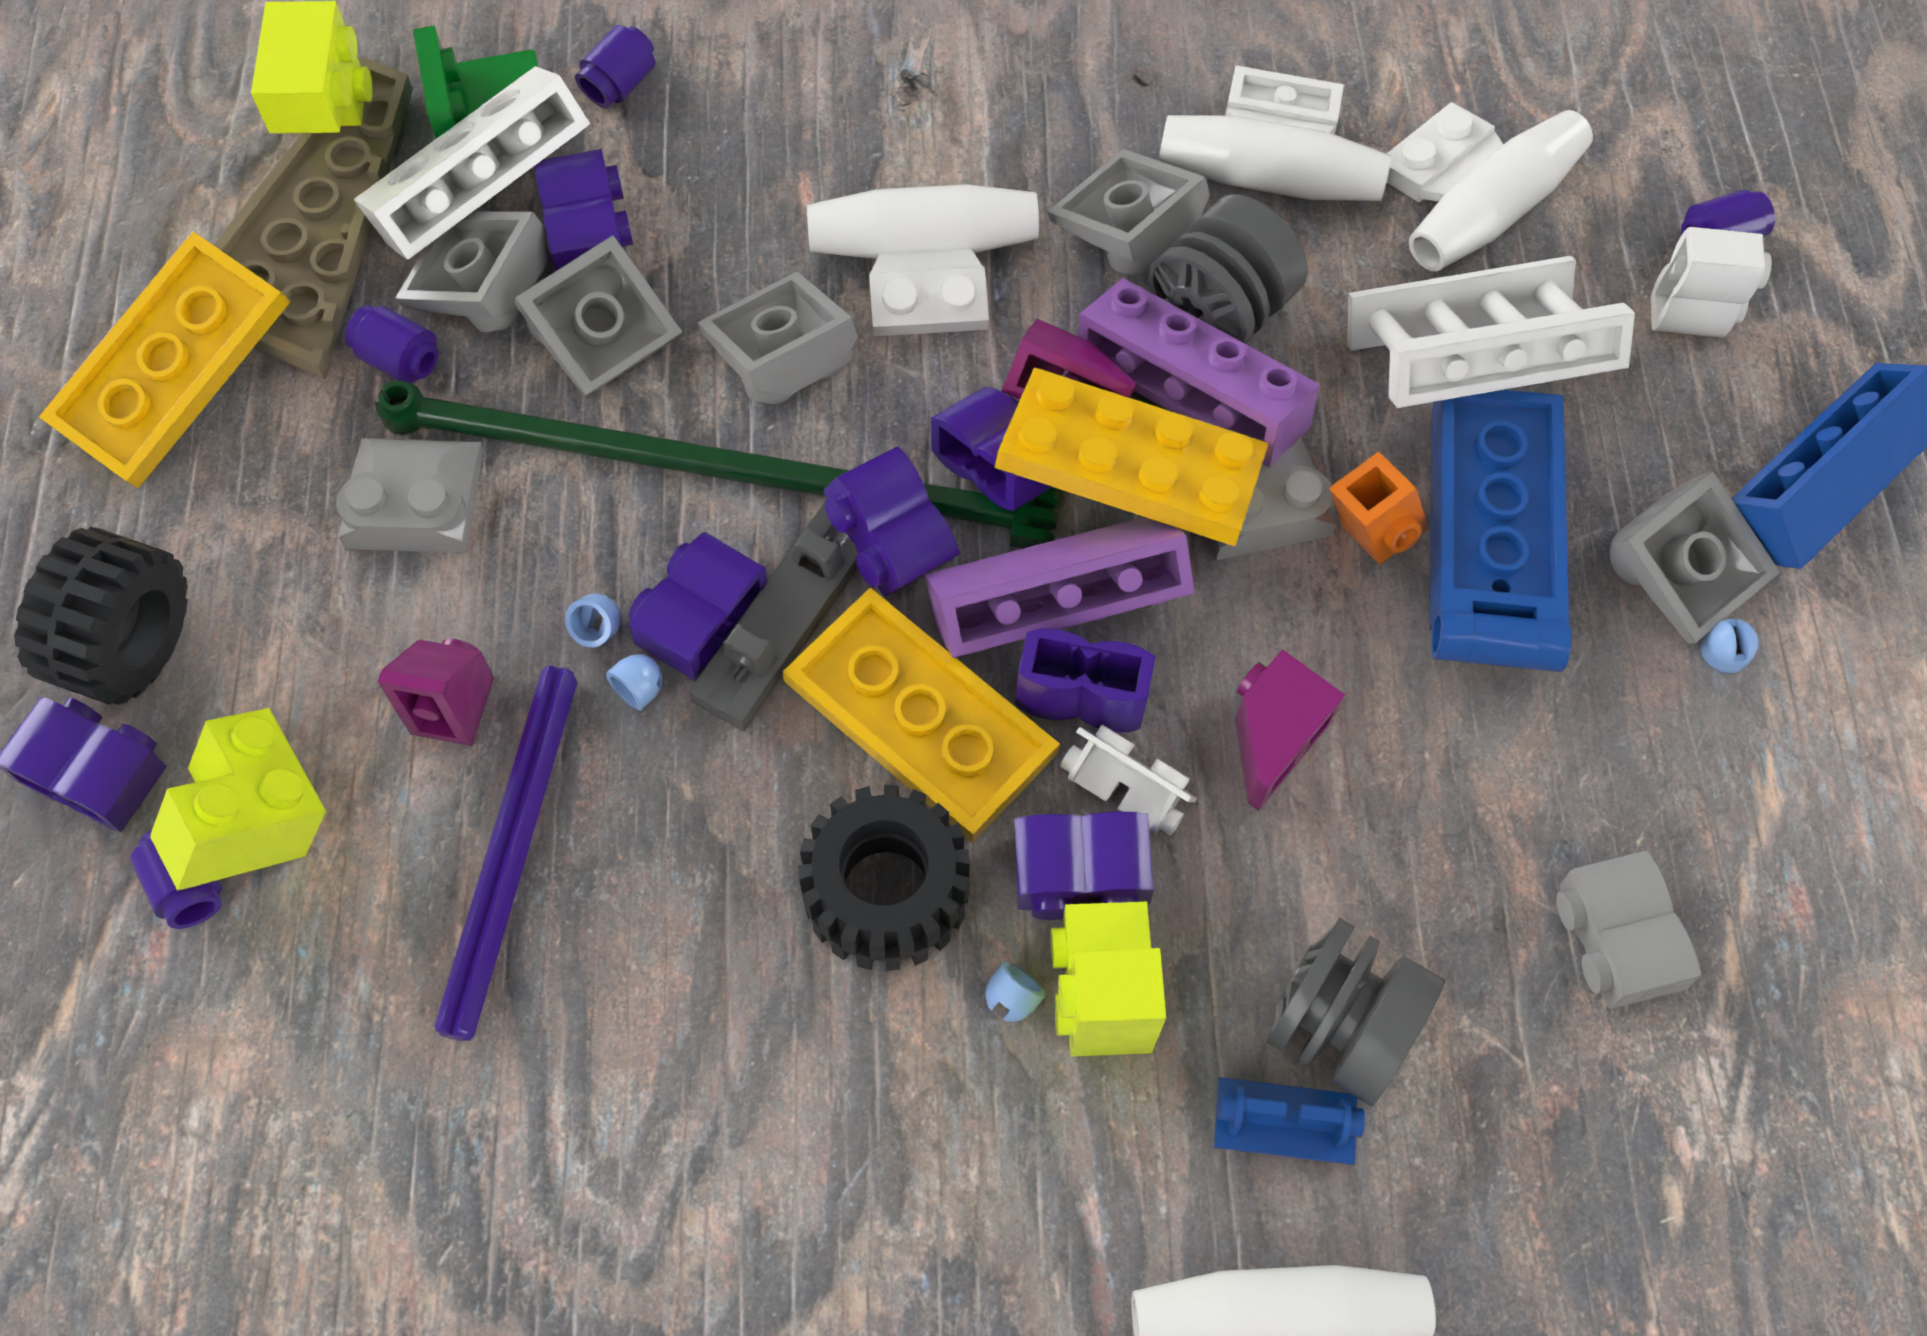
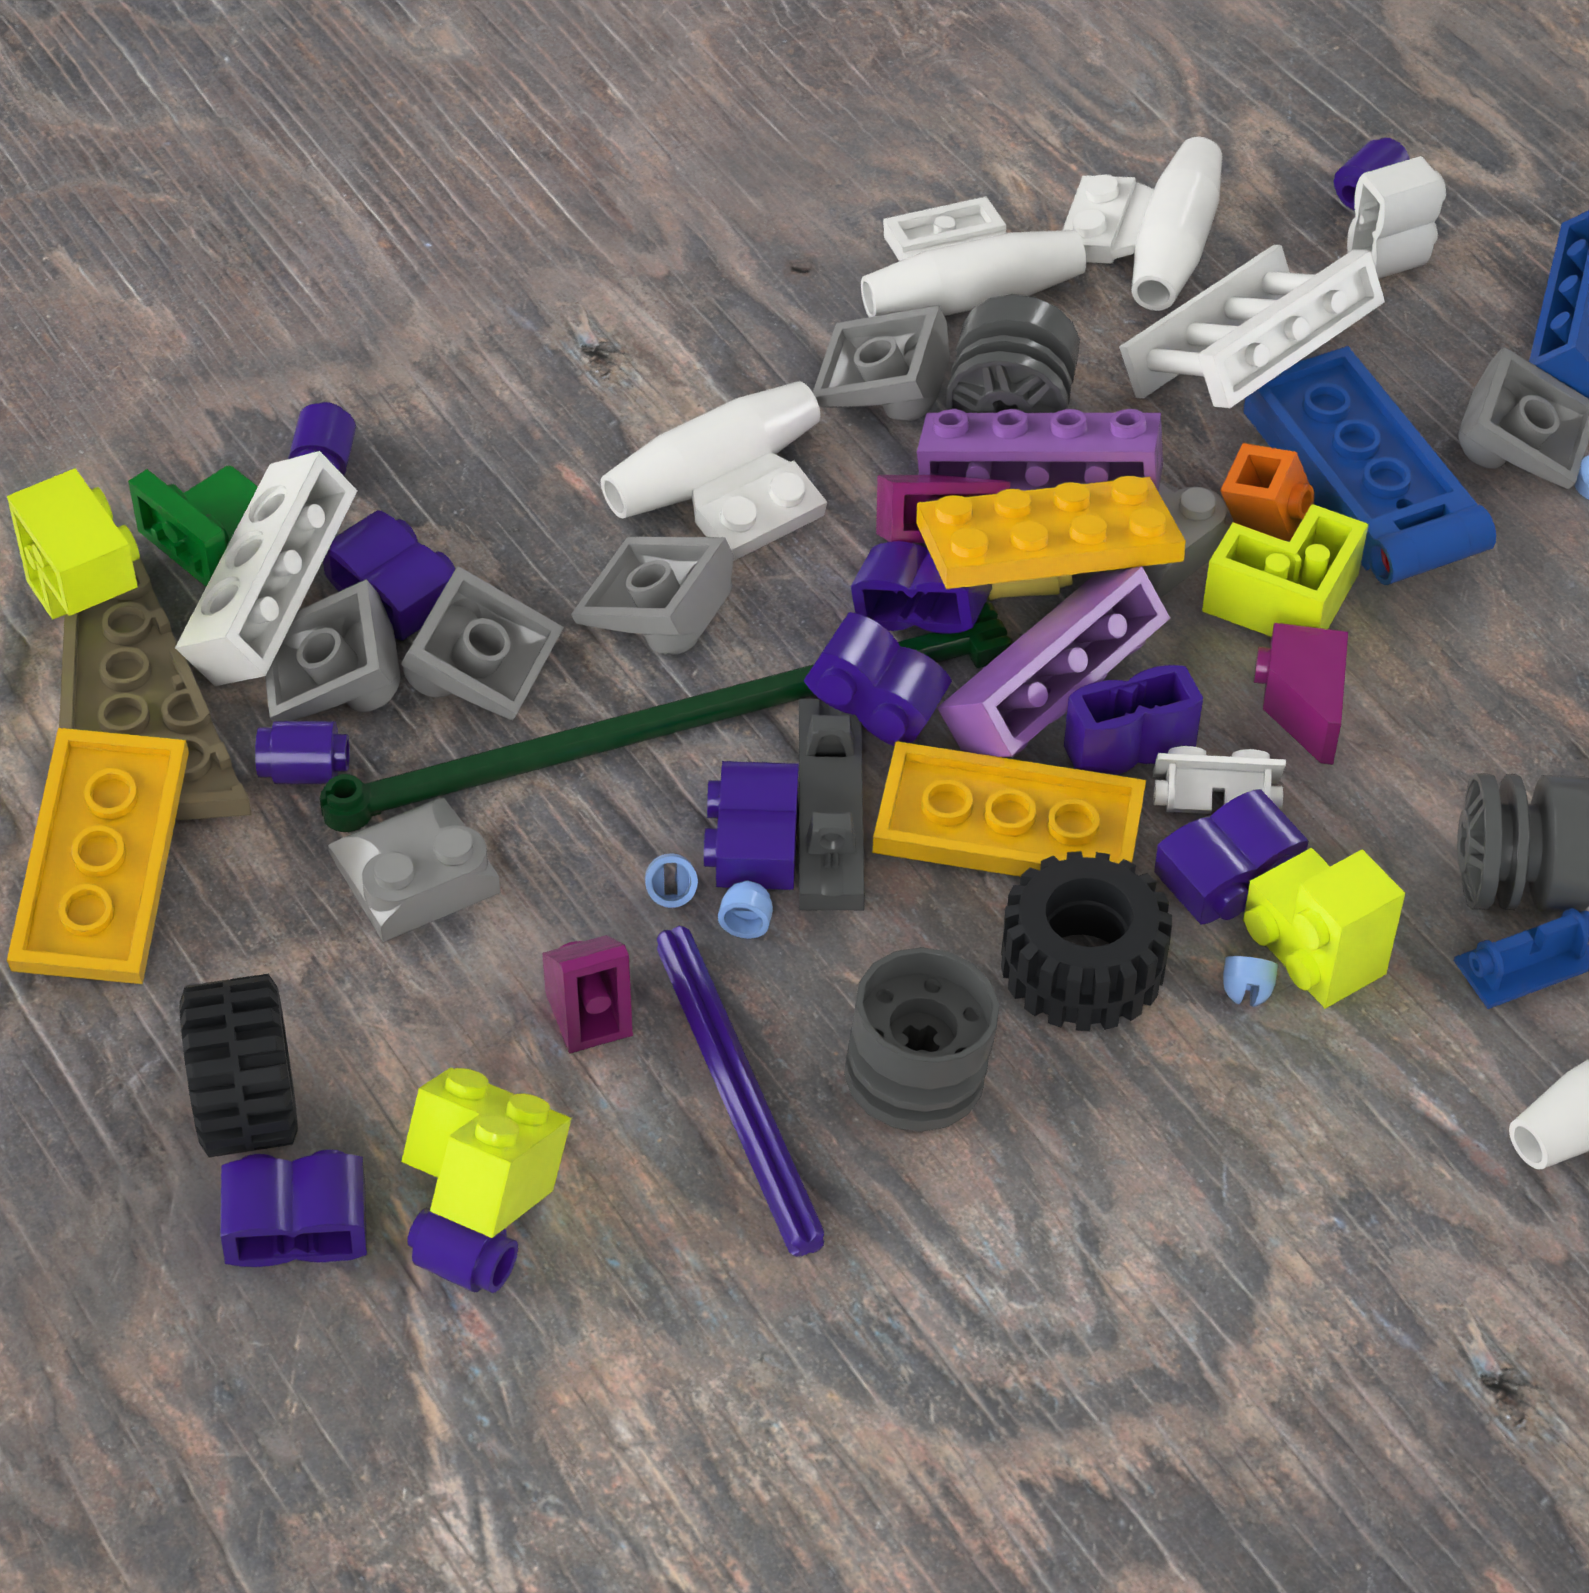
camera: 30 degrees left, 15 degrees down
(652, 863) = (921, 1039): none -> dark grey wheel
(1337, 619) = (1296, 582): none -> neon yellow brick

